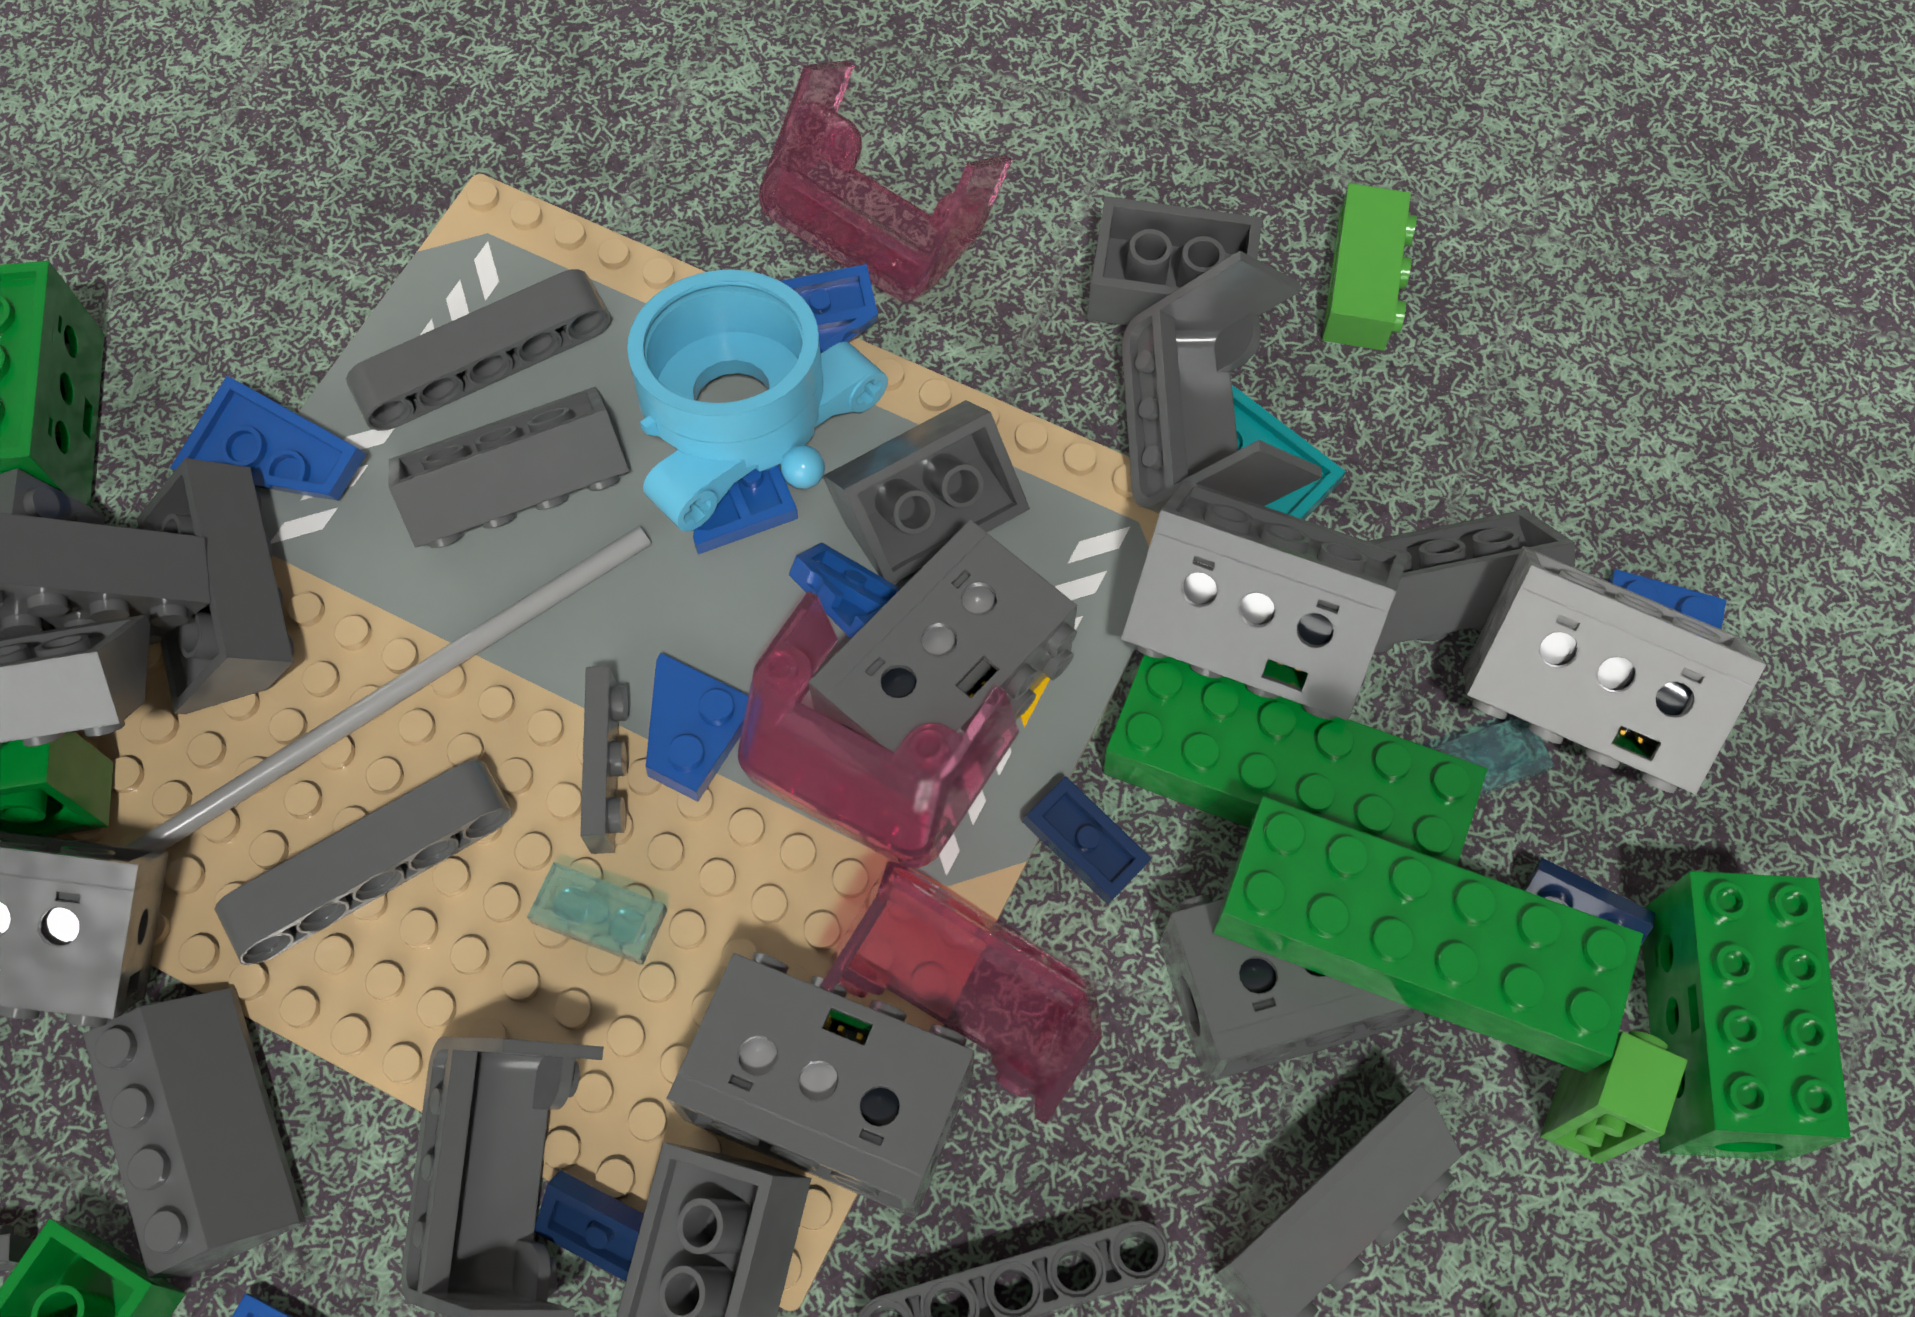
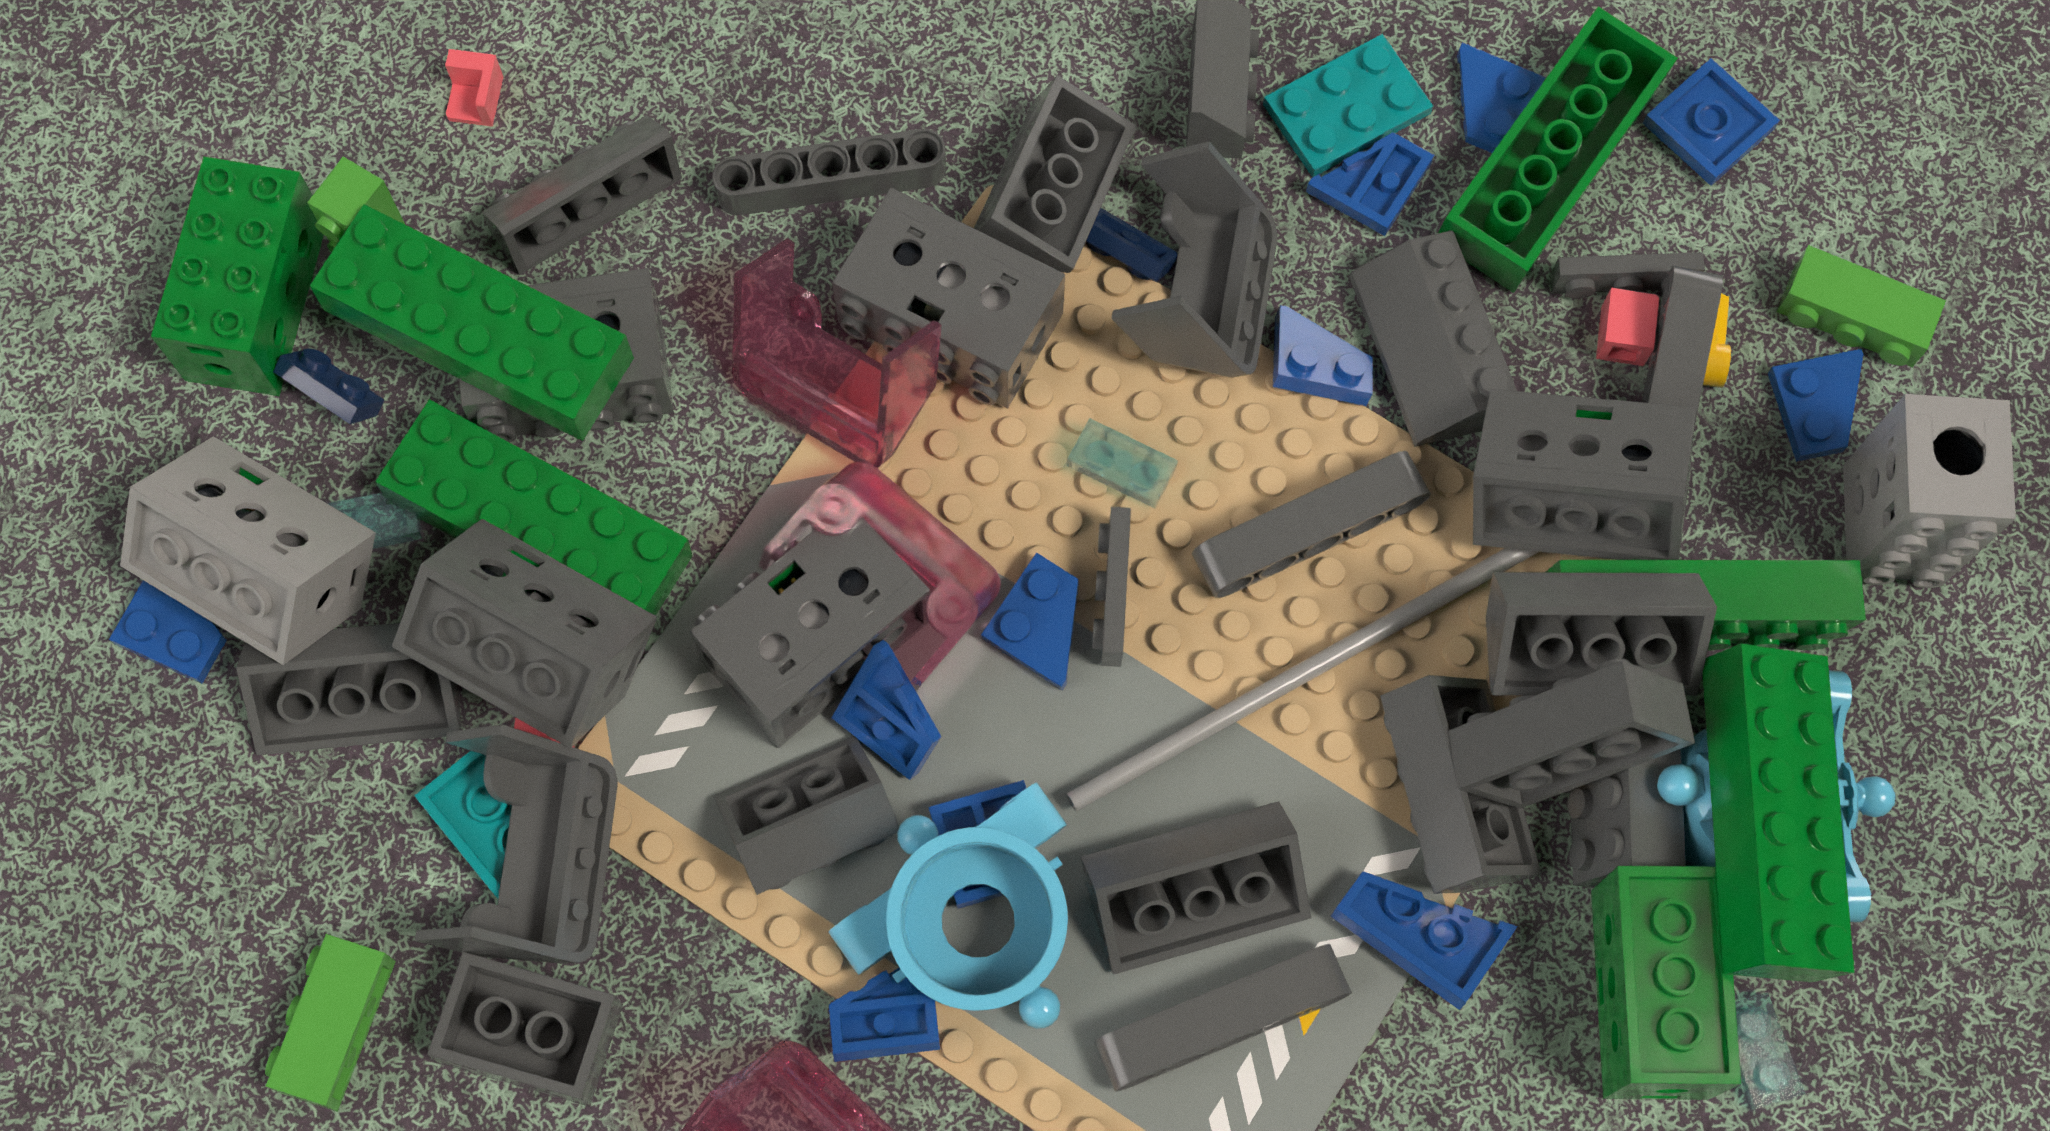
camera: 175 degrees left, 5 degrees up
(352, 1093) = (1318, 361): none -> wing
(1086, 840) = (717, 487): dark blue plate -> none

